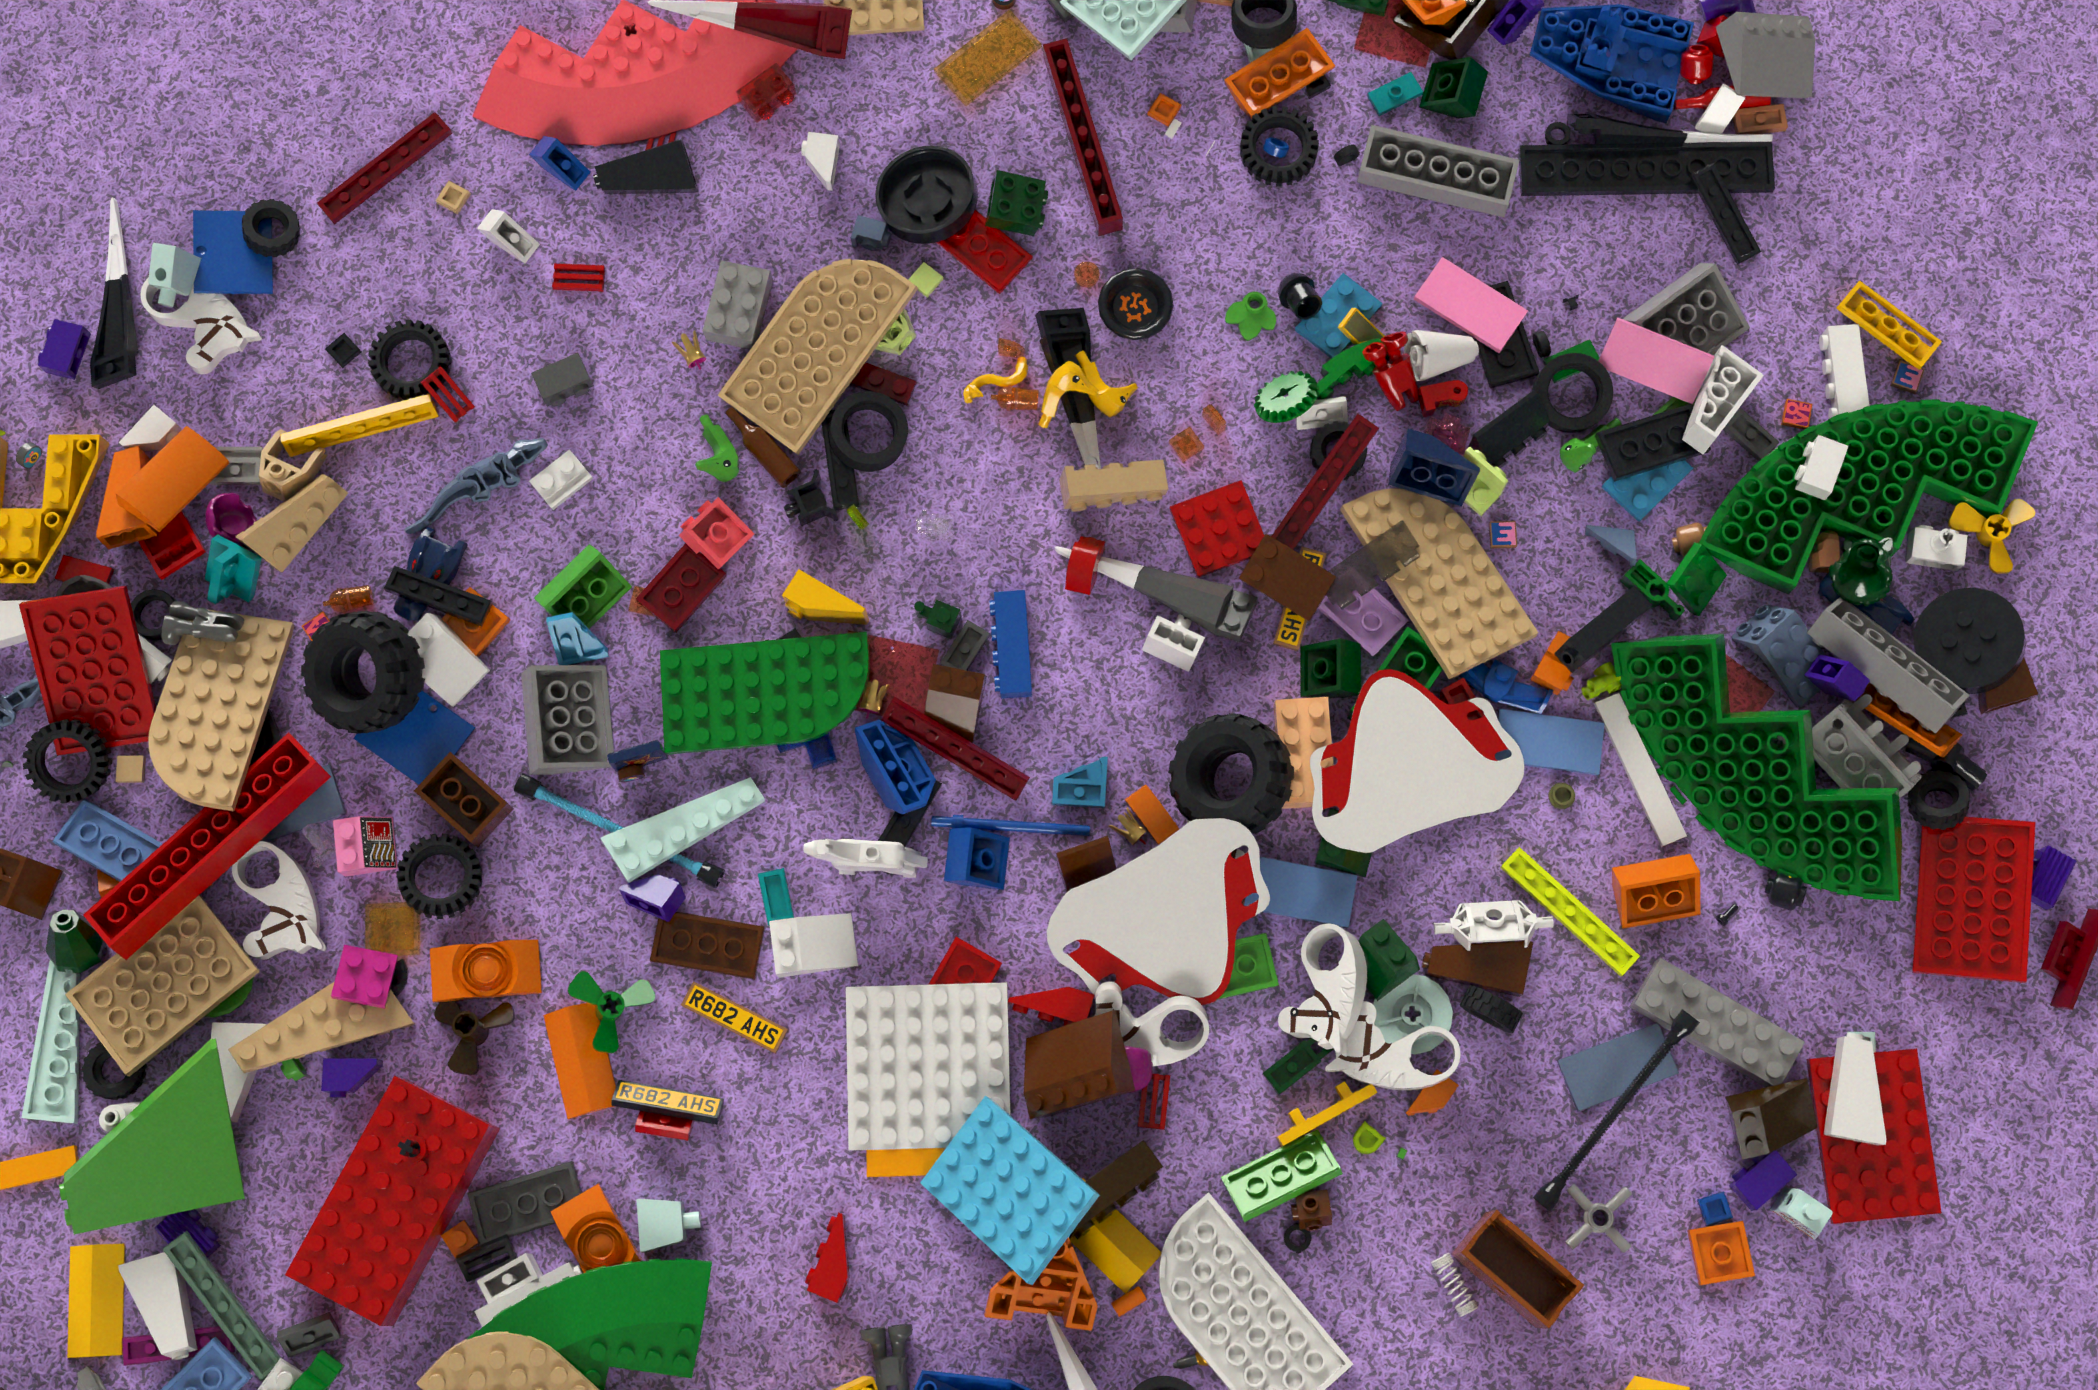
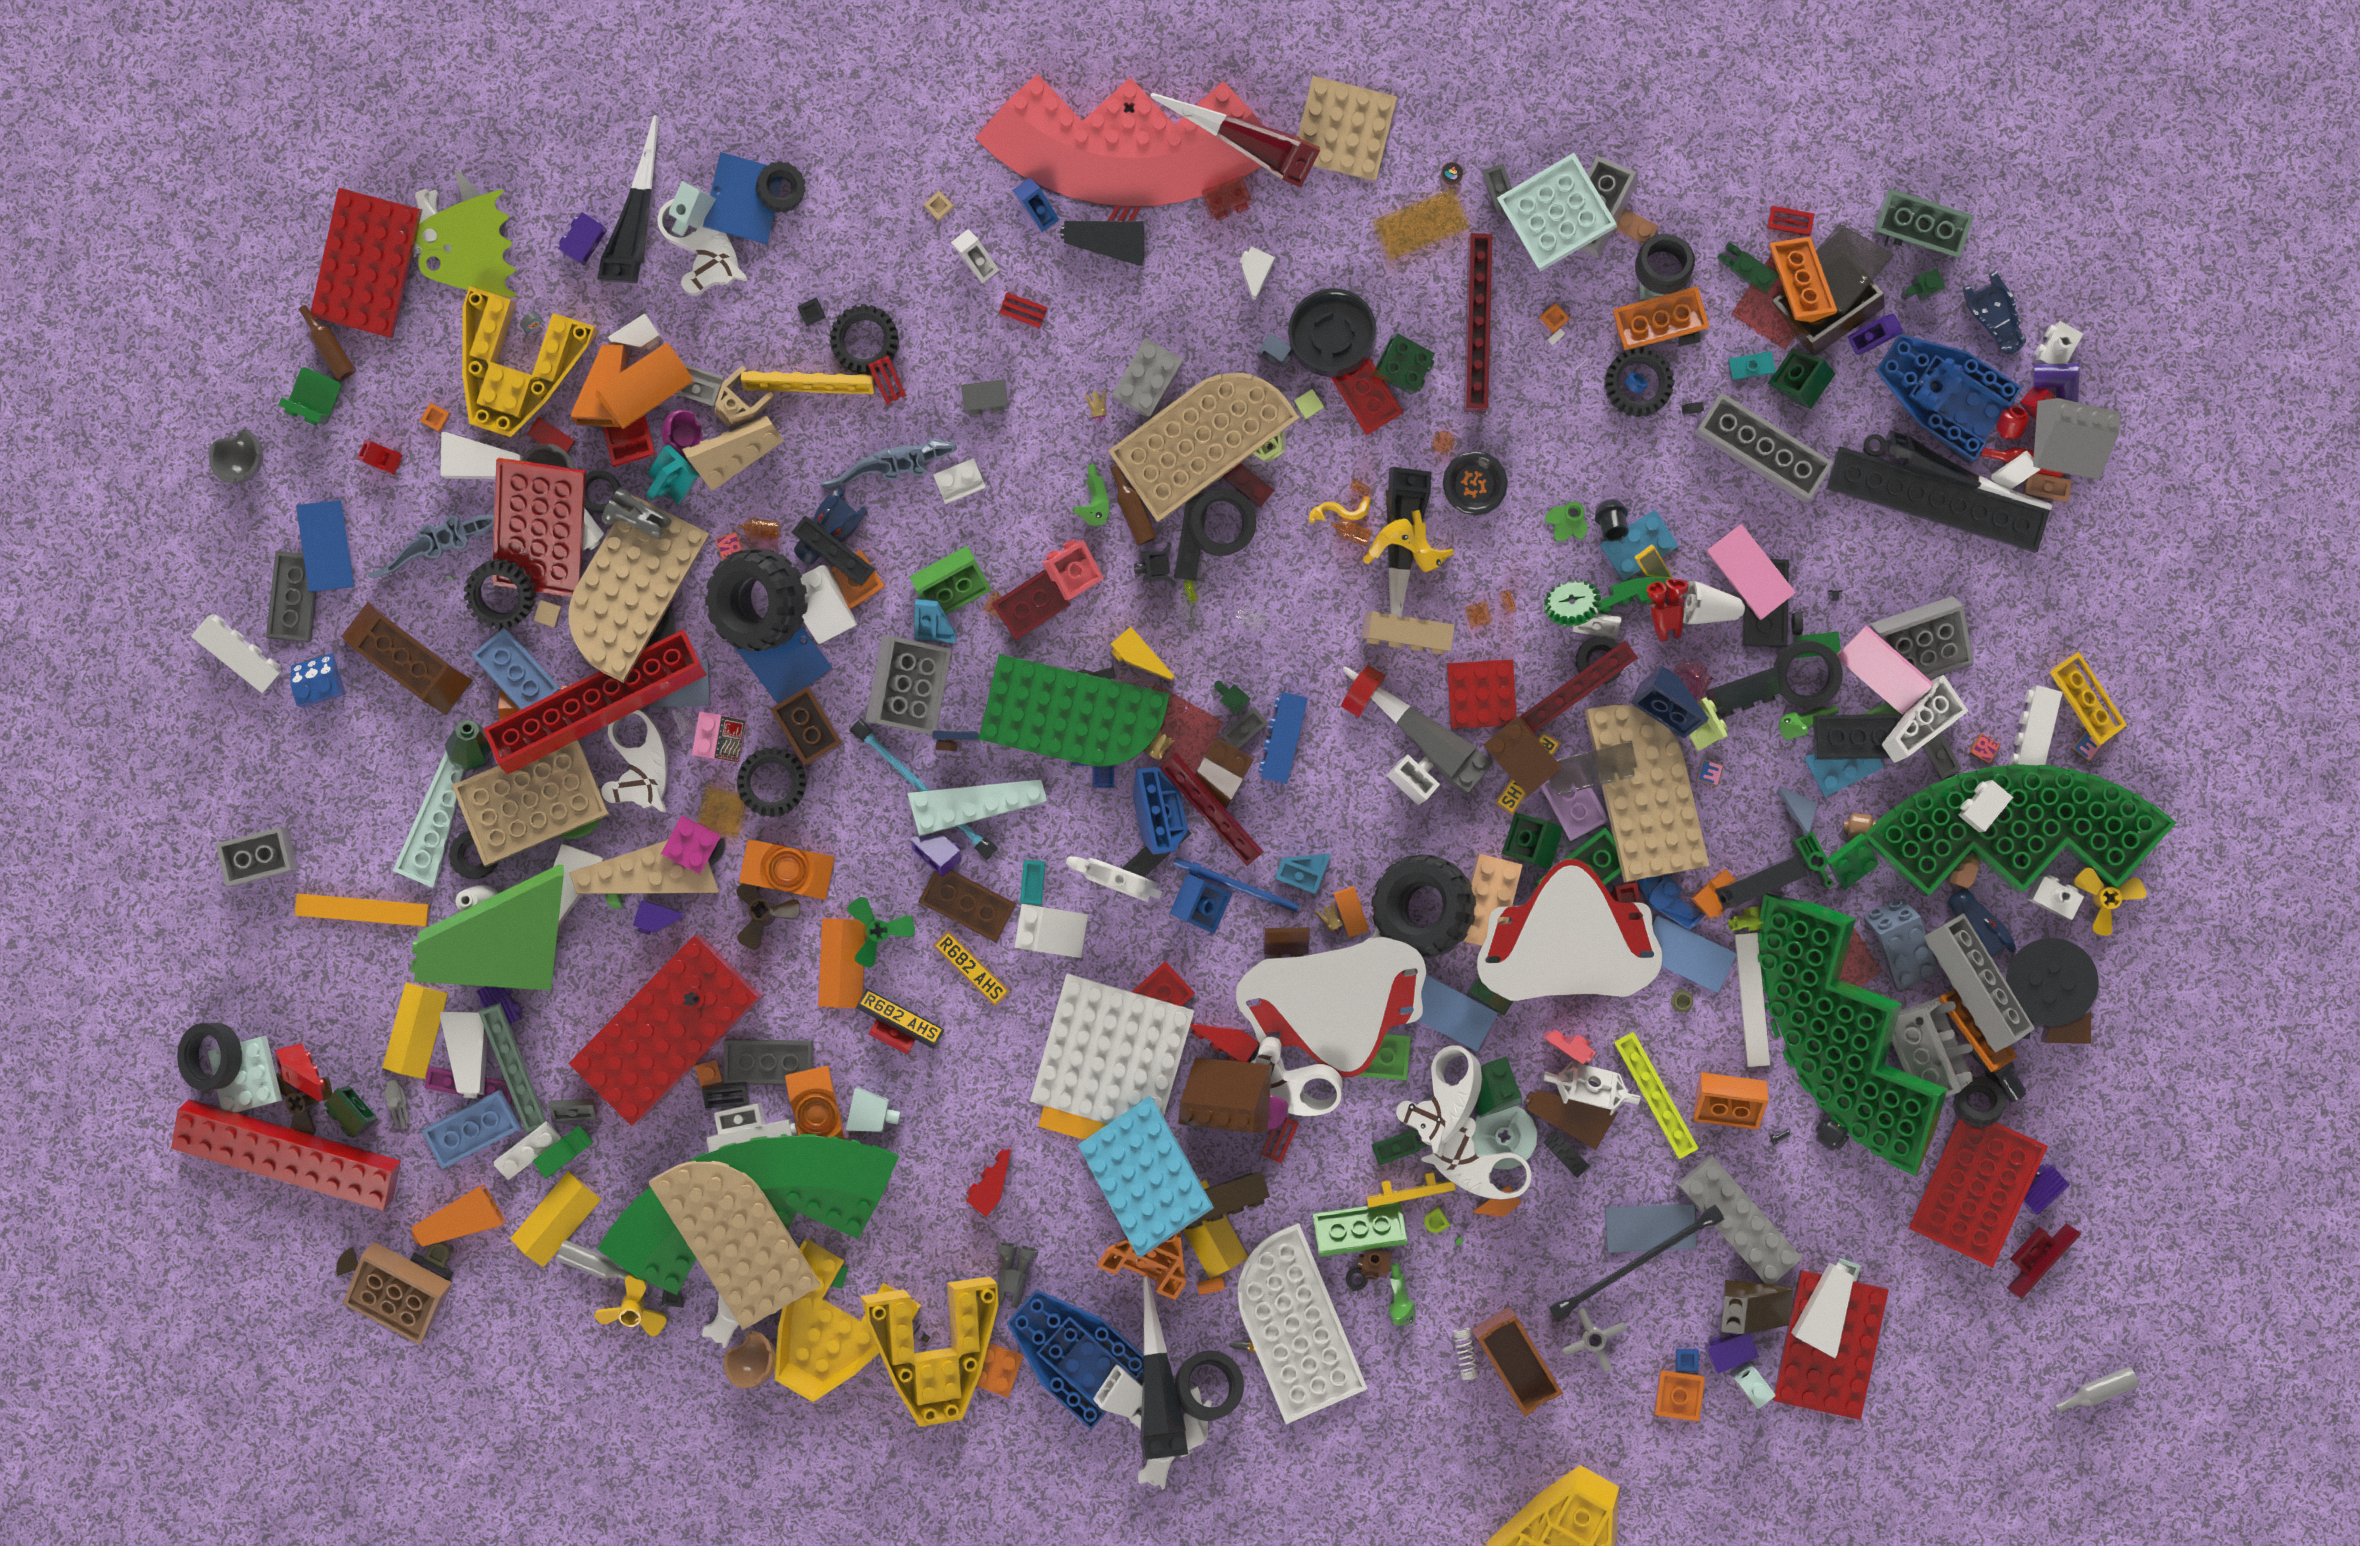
camera: 15 degrees right, 10 degrees up
(384, 168) = (889, 162): dark red plate -> none
(1362, 1255) = (1402, 1309): none -> bright green animal
(1441, 394) = (1703, 640): red leg -> none
(1458, 885) = (1574, 1047): none -> coral plate
(1725, 213) = (1988, 560): black tile -> none
(1837, 677) = (1934, 981): dark purple brick -> none
(1863, 570) = (1988, 899): dark green hair -> none

